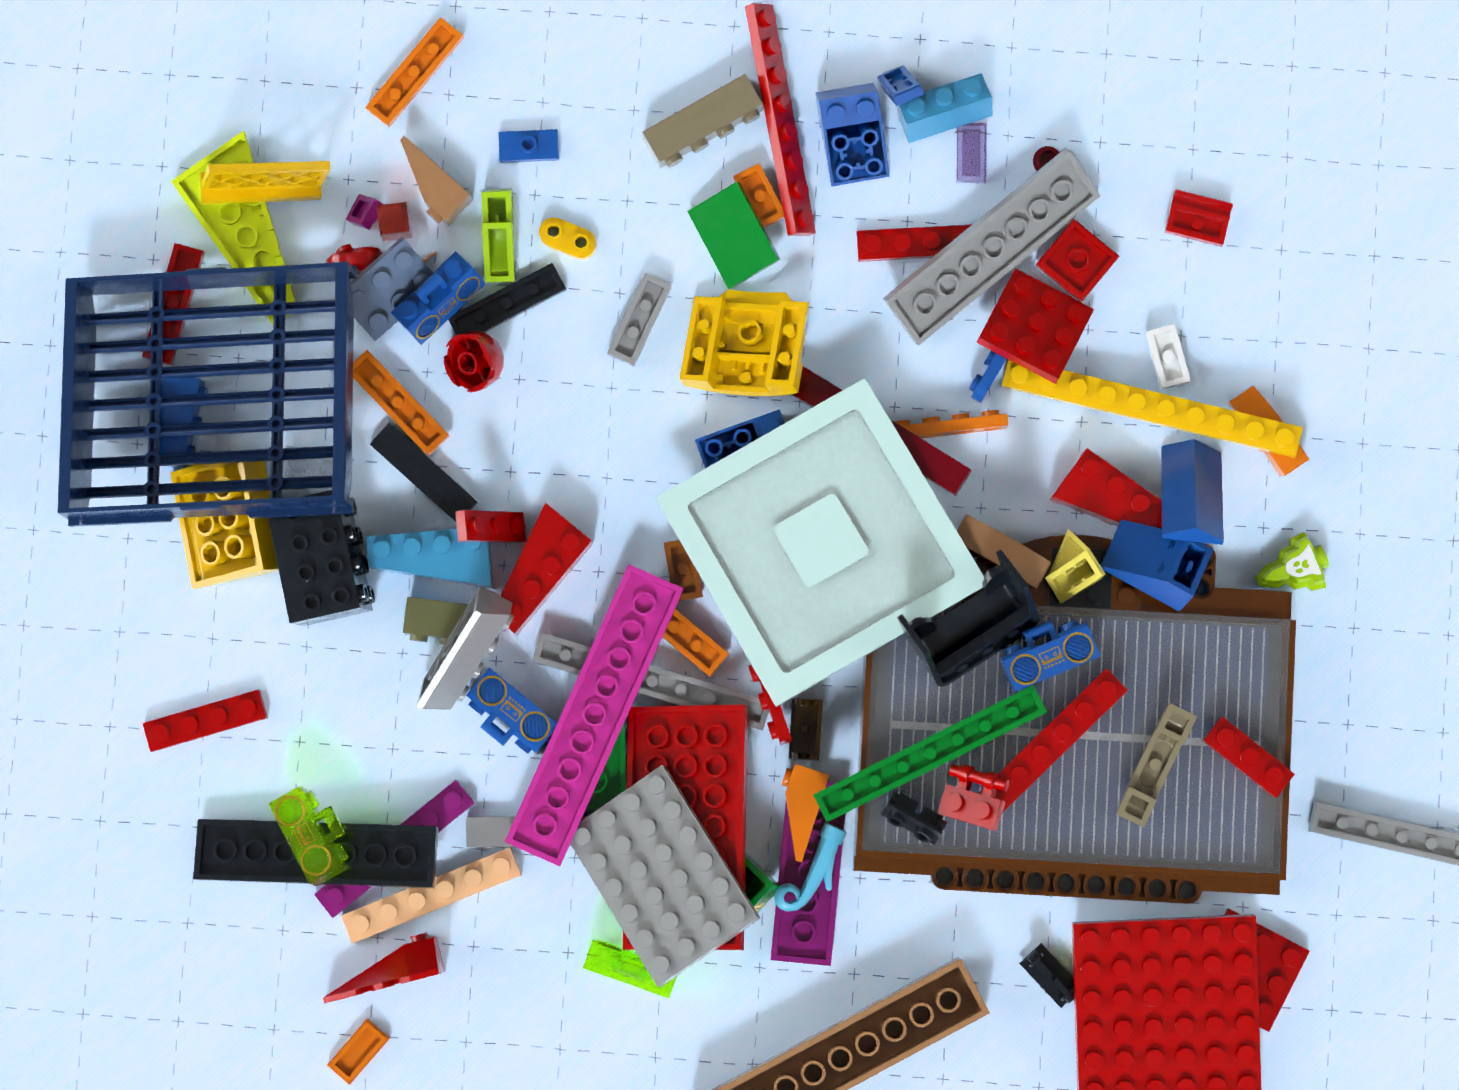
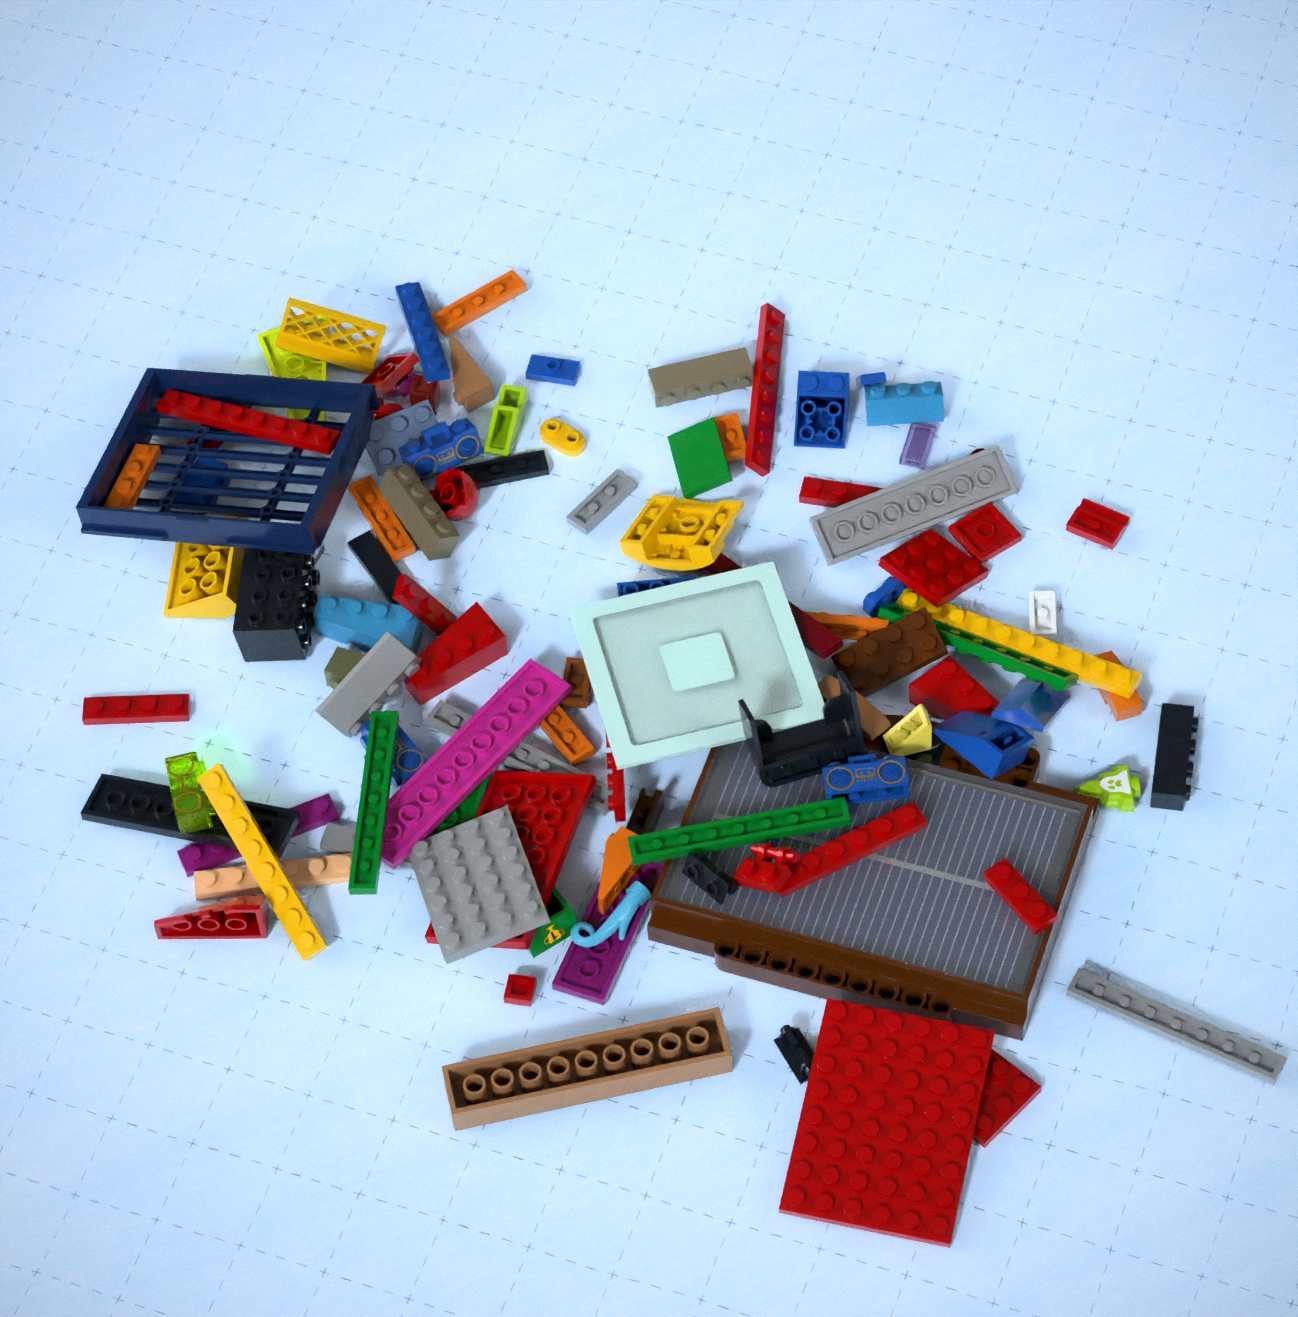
camera: 20 degrees right, 30 degrees down
(101, 442) = (133, 477): none -> orange plate
(209, 323) = (248, 421): none -> red plate
(344, 205) = (391, 371): none -> red plate
(358, 1051) = (169, 980): orange tile -> none
(365, 136) = (422, 332): none -> blue plate
(417, 902) = (262, 862): none -> yellow plate
(440, 391) = (419, 512): none -> dark tan brick
(516, 800) = (373, 803): none -> green plate
(623, 966) = (426, 963): clear neon green piece -> none
(737, 973) = (520, 990): none -> red plate
(1021, 457) = (891, 653): none -> reddish brown plate
(1112, 425) = (991, 652): none -> green plate
(1155, 764) = (937, 880): dark tan slope -> none
(1352, 509) = (1172, 757): none -> black brick

